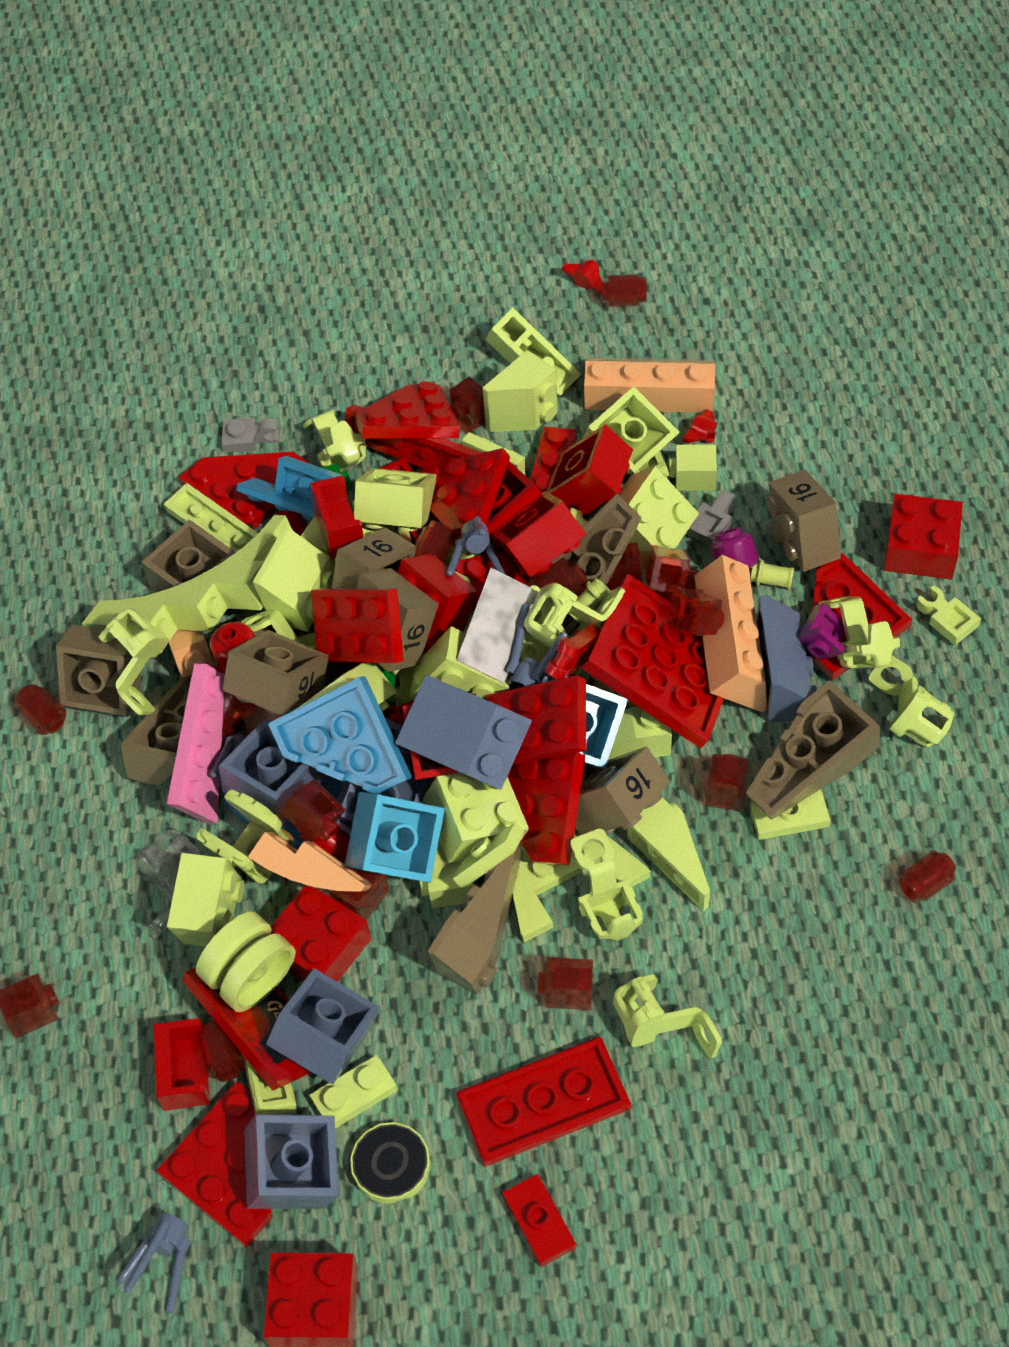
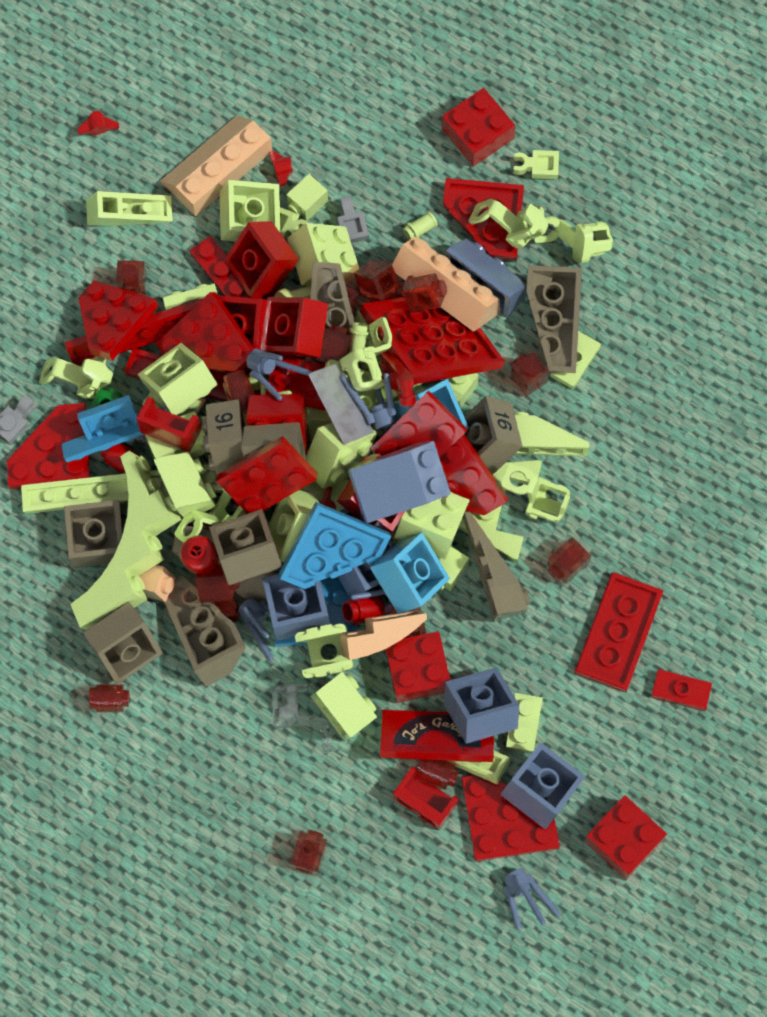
camera: 50 degrees left, 15 degrees up
(142, 646) = (146, 604): yellowish green piece -> none
(199, 746) = (245, 631): bright pink wing -> none
(245, 961) = (408, 713): yellowish green wheel -> none
(313, 811) = (354, 602): clear red brick -> none
(390, 1162) = (581, 737): black tile -> none
(488, 854) = (469, 534): yellowish green plate -> none
(521, 395) = (162, 242): yellowish green slope -> none
(624, 290) = (134, 114): clear red brick -> none
(649, 1019) = (632, 535): yellowish green piece -> none
(735, 545) = (389, 232): magenta head -> none
(804, 520) = (412, 178): dark tan brick -> none
(823, 633) = (493, 240): magenta bracket -> none
(927, 876) = (679, 328): clear red brick -> none

